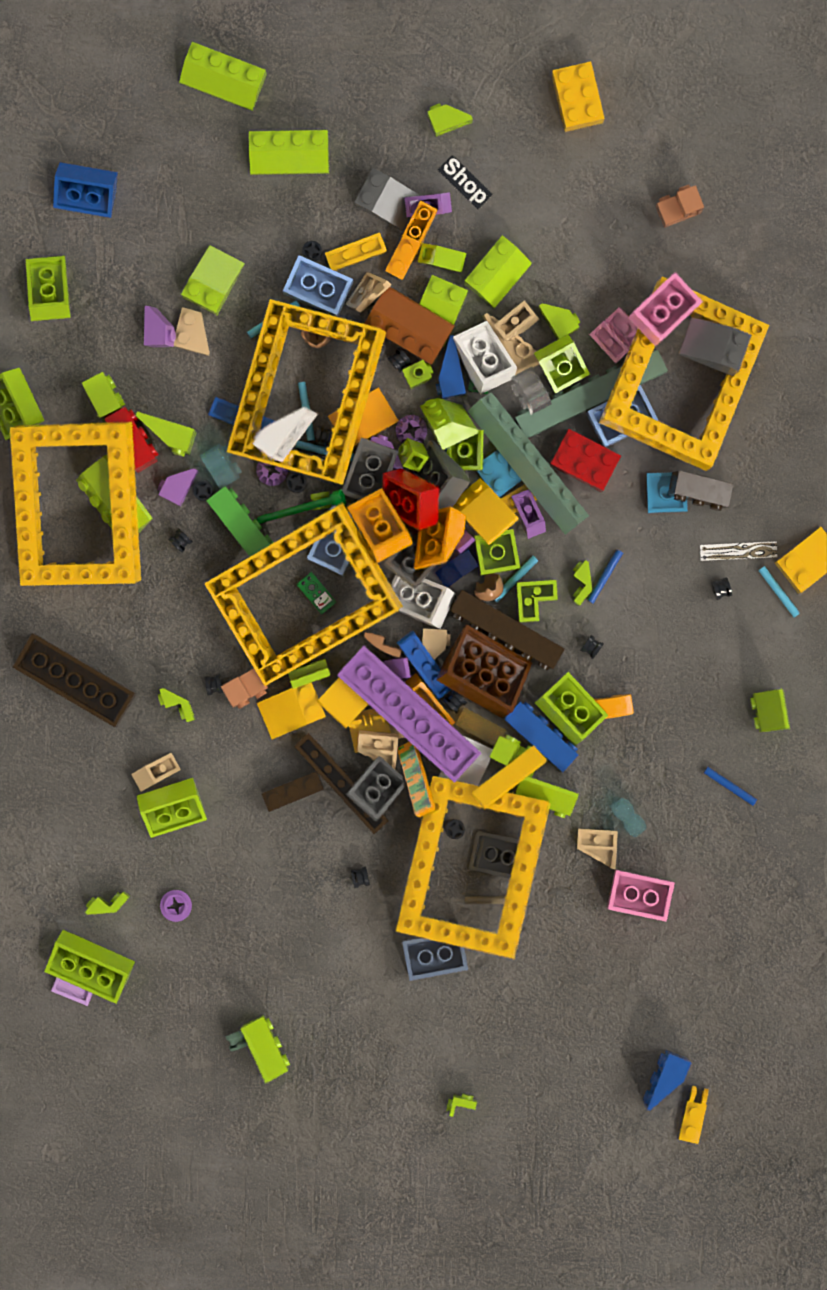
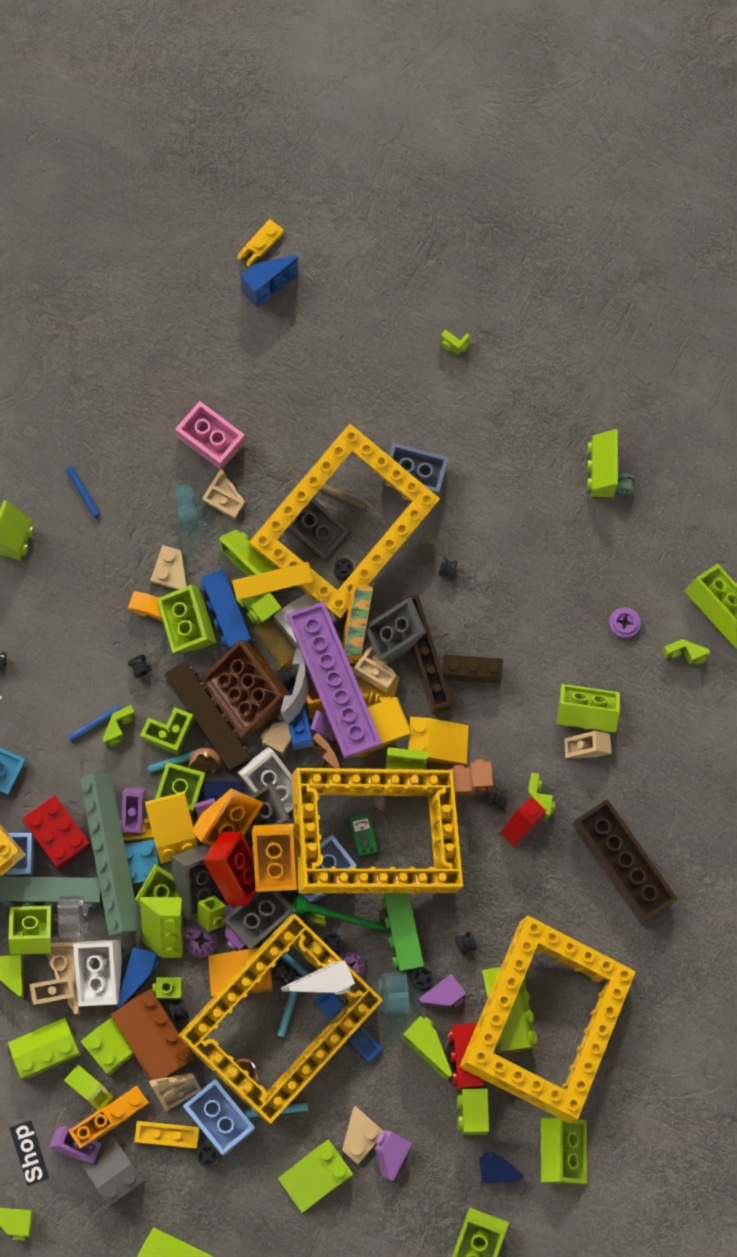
camera: 150 degrees left, 15 degrees down
(61, 360) = (497, 1169): none -> clear blue slope
(180, 670) = (523, 821): none -> red slope
(432, 672) = (293, 703): none -> light grey slope
(612, 751) = (169, 569): none -> tan wing

